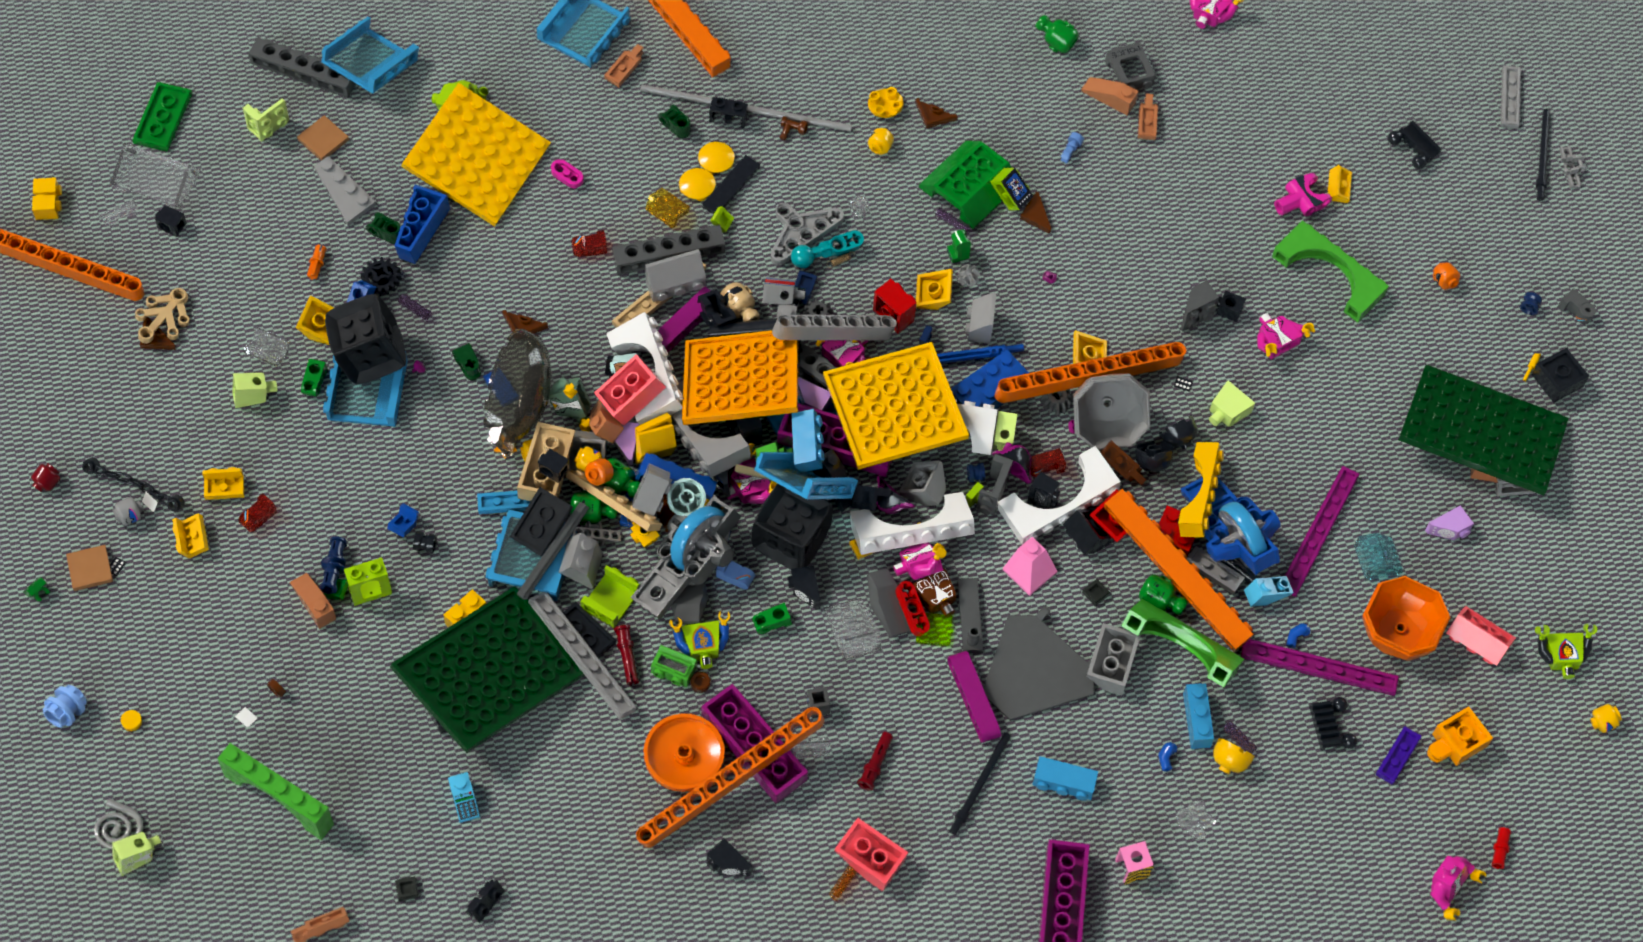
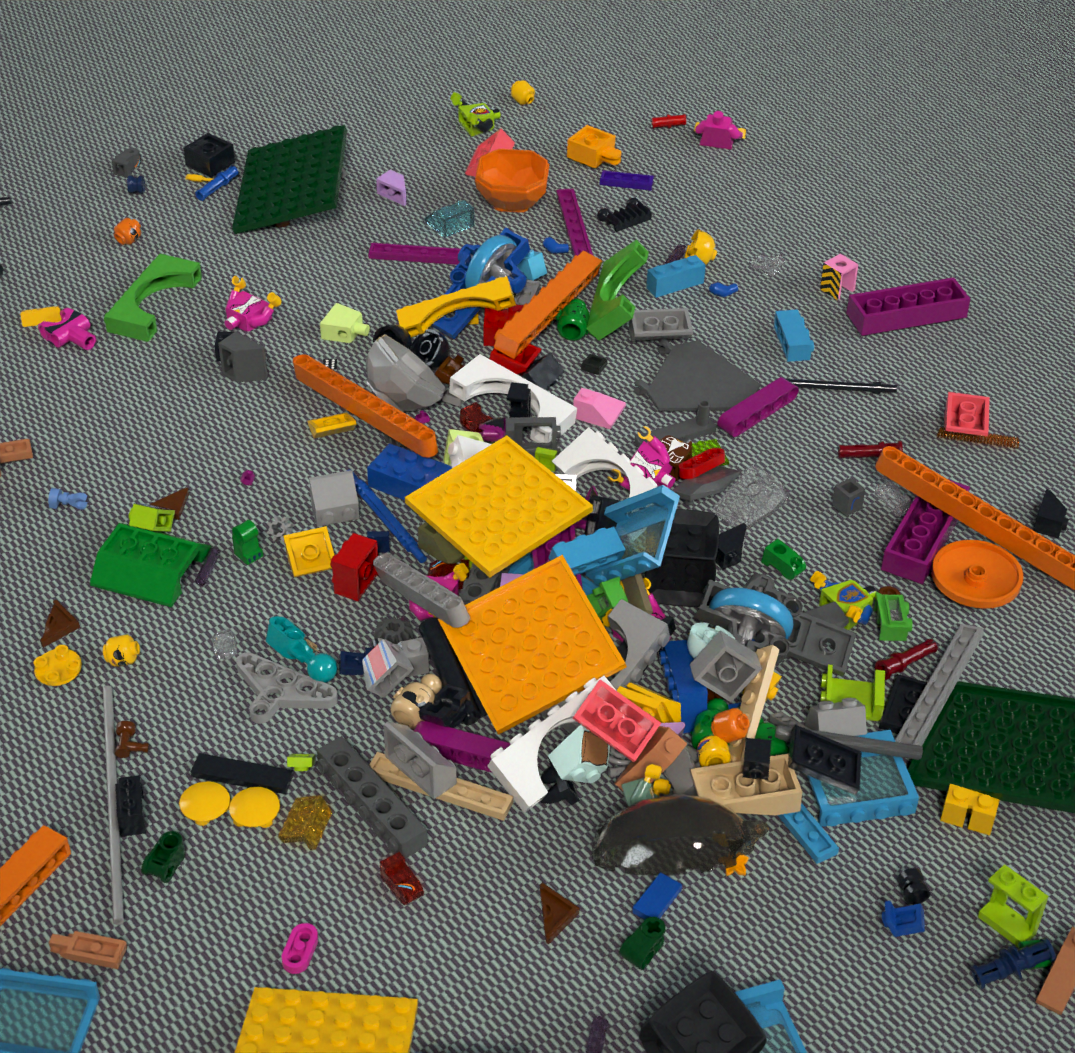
camera: 110 degrees left, 20 degrees down
(1518, 379) = (220, 180): none -> blue pin

